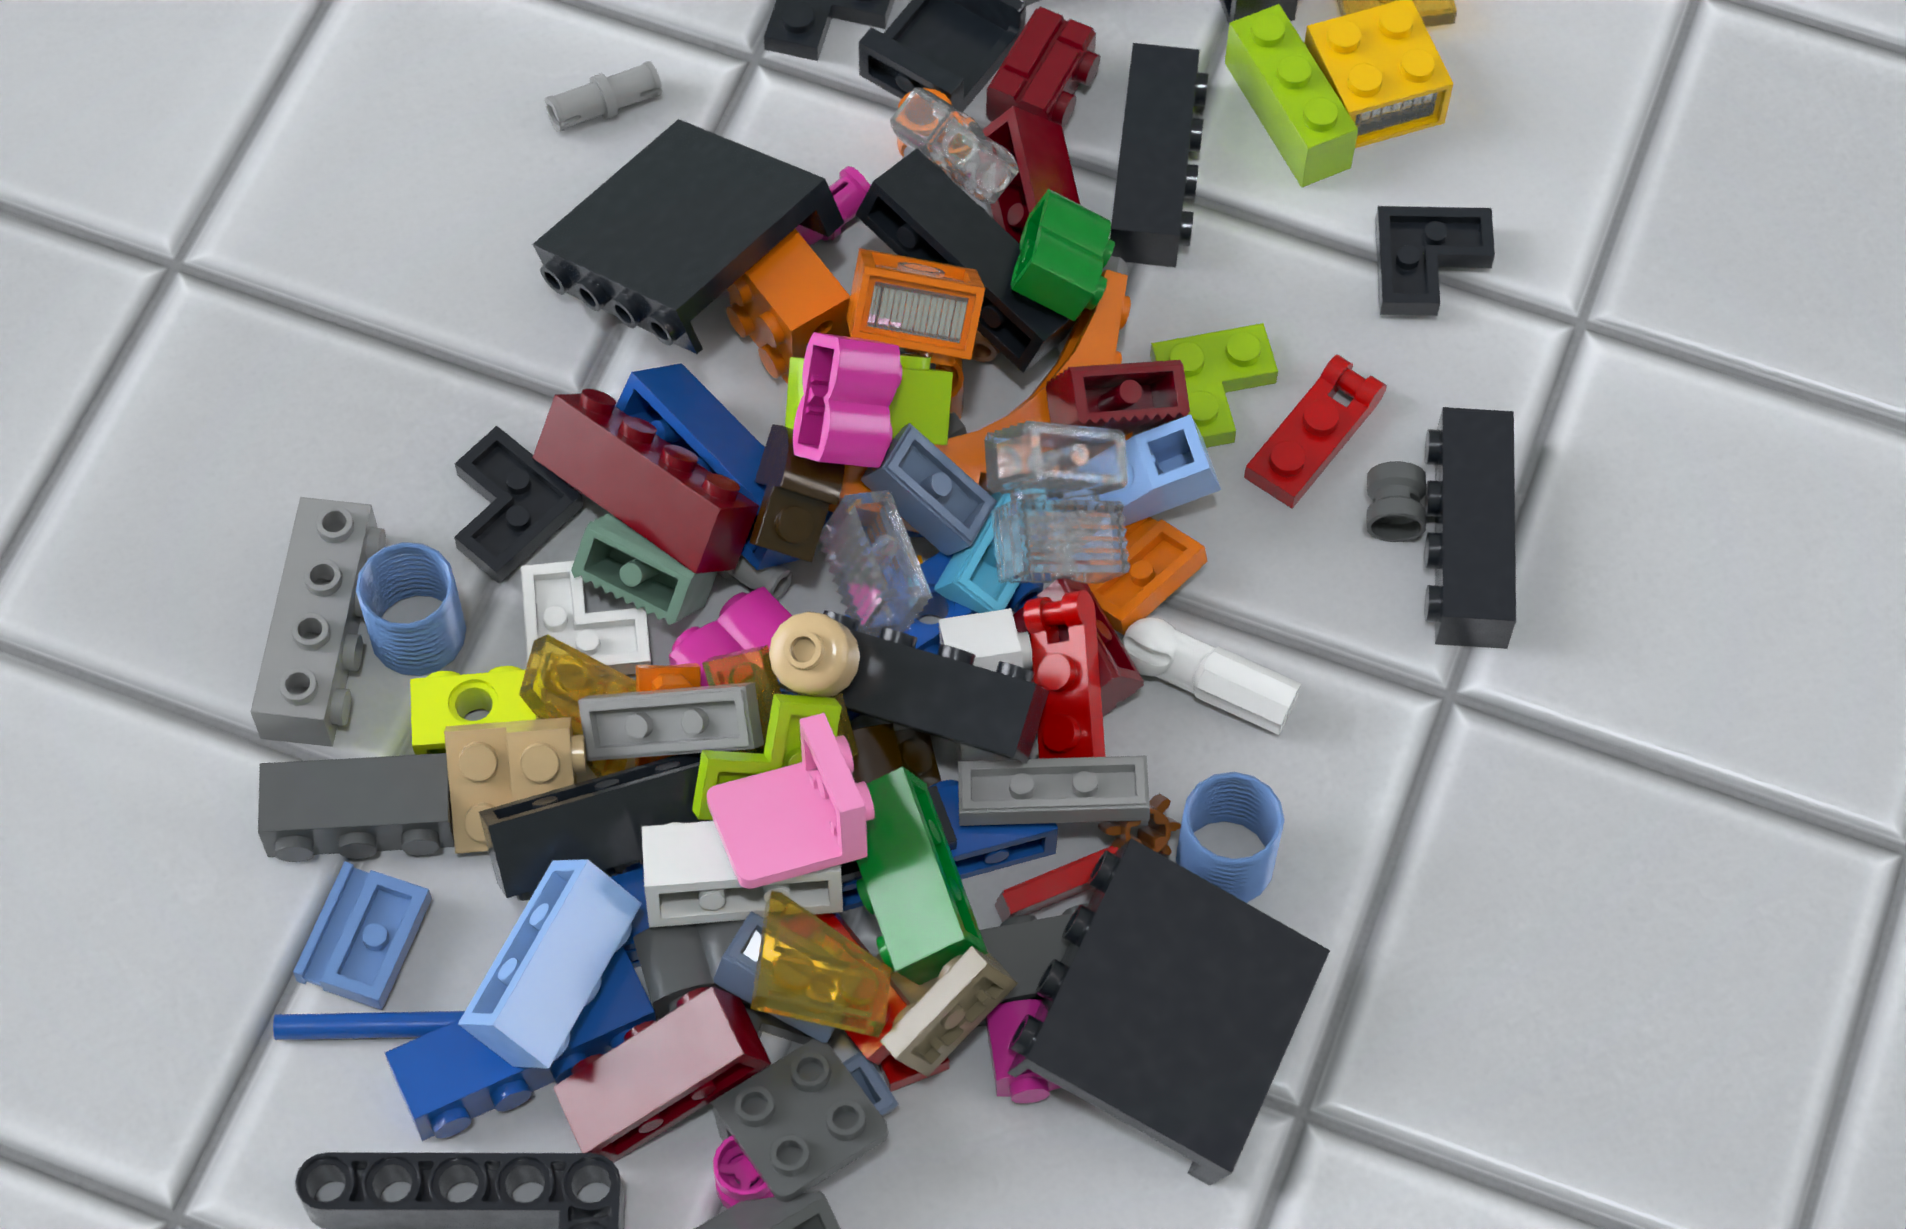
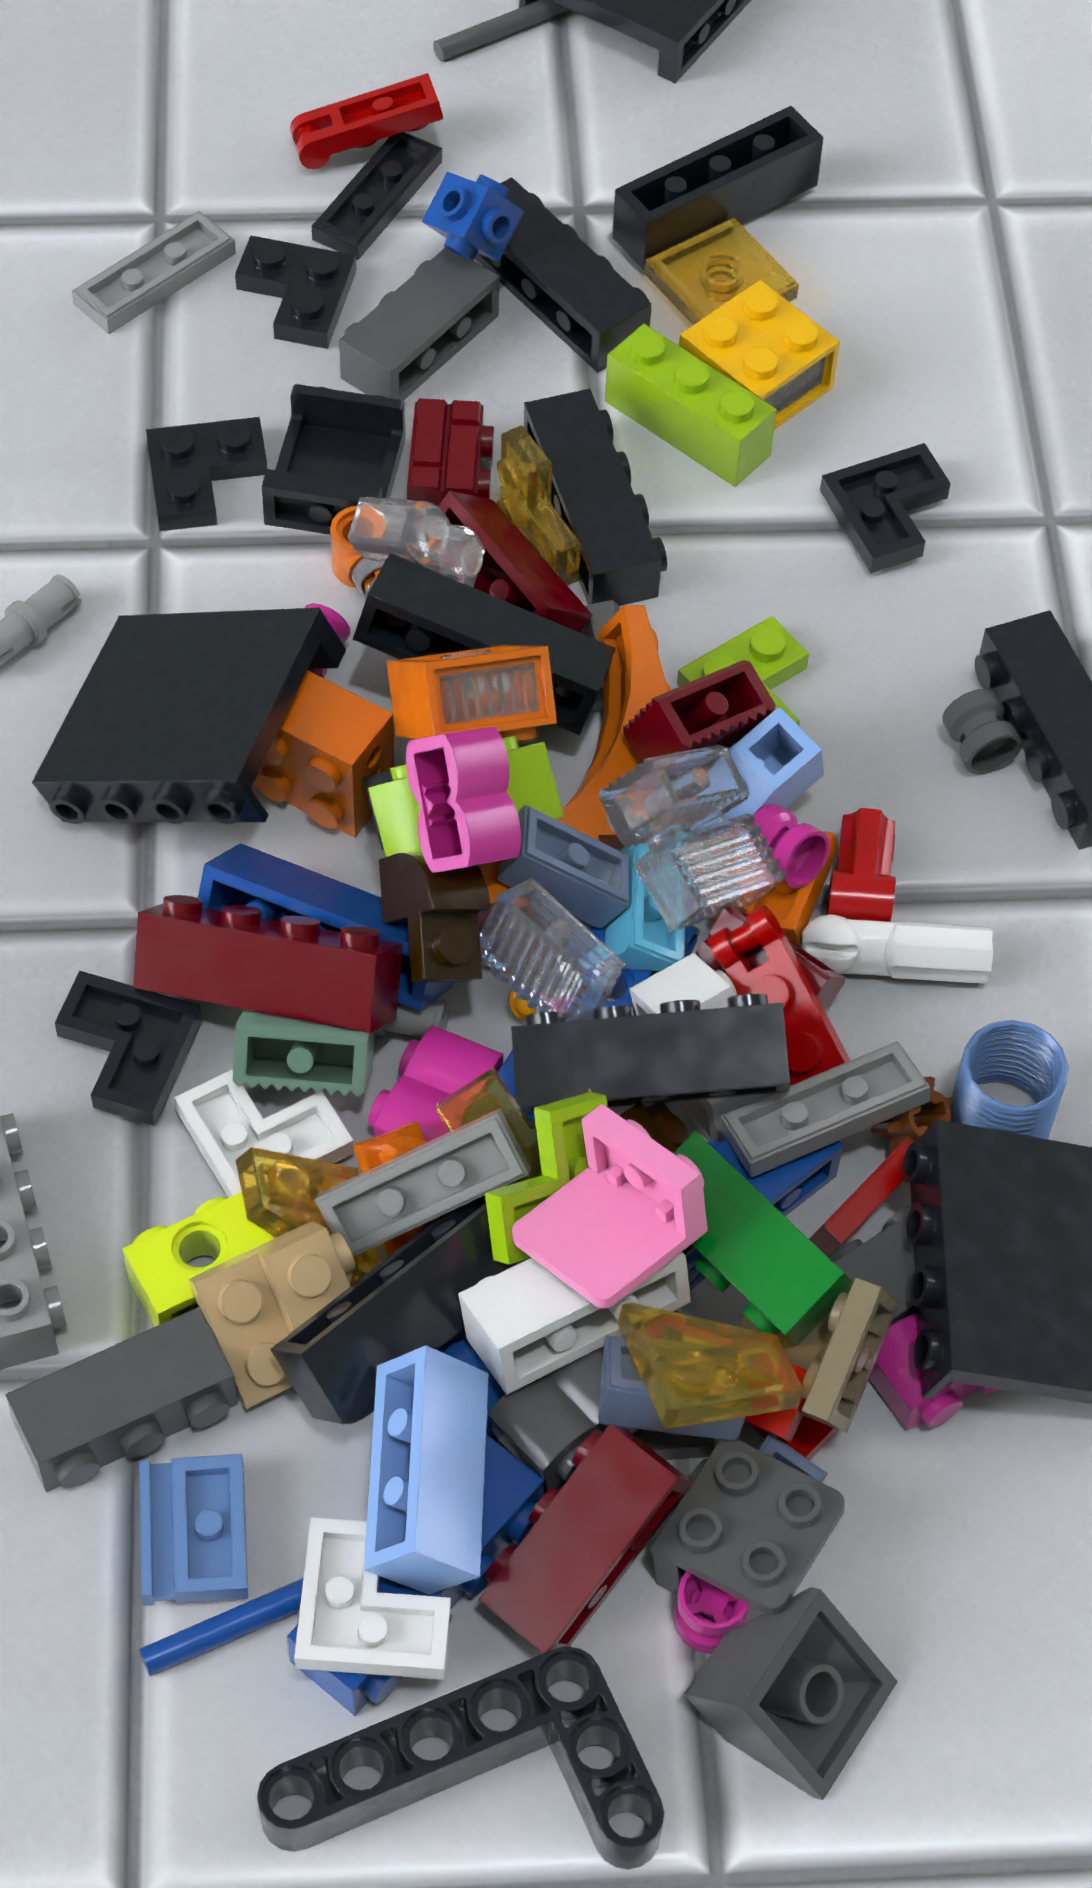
camera: 25 degrees left, 5 degrees down
(401, 573) = (78, 1139): medium blue piece -> none
(433, 1060) = (354, 1626): none -> white plate
(814, 655) = (552, 1055): tan head -> none
(1063, 256) = (578, 605): green brick -> none
(1088, 142) = (526, 500): none -> clear yellow plate
(1152, 545) = (798, 846): none -> dark pink wheel
(1213, 600) = (863, 880): none -> red piece
(1314, 432) = (868, 699): red plate -> none

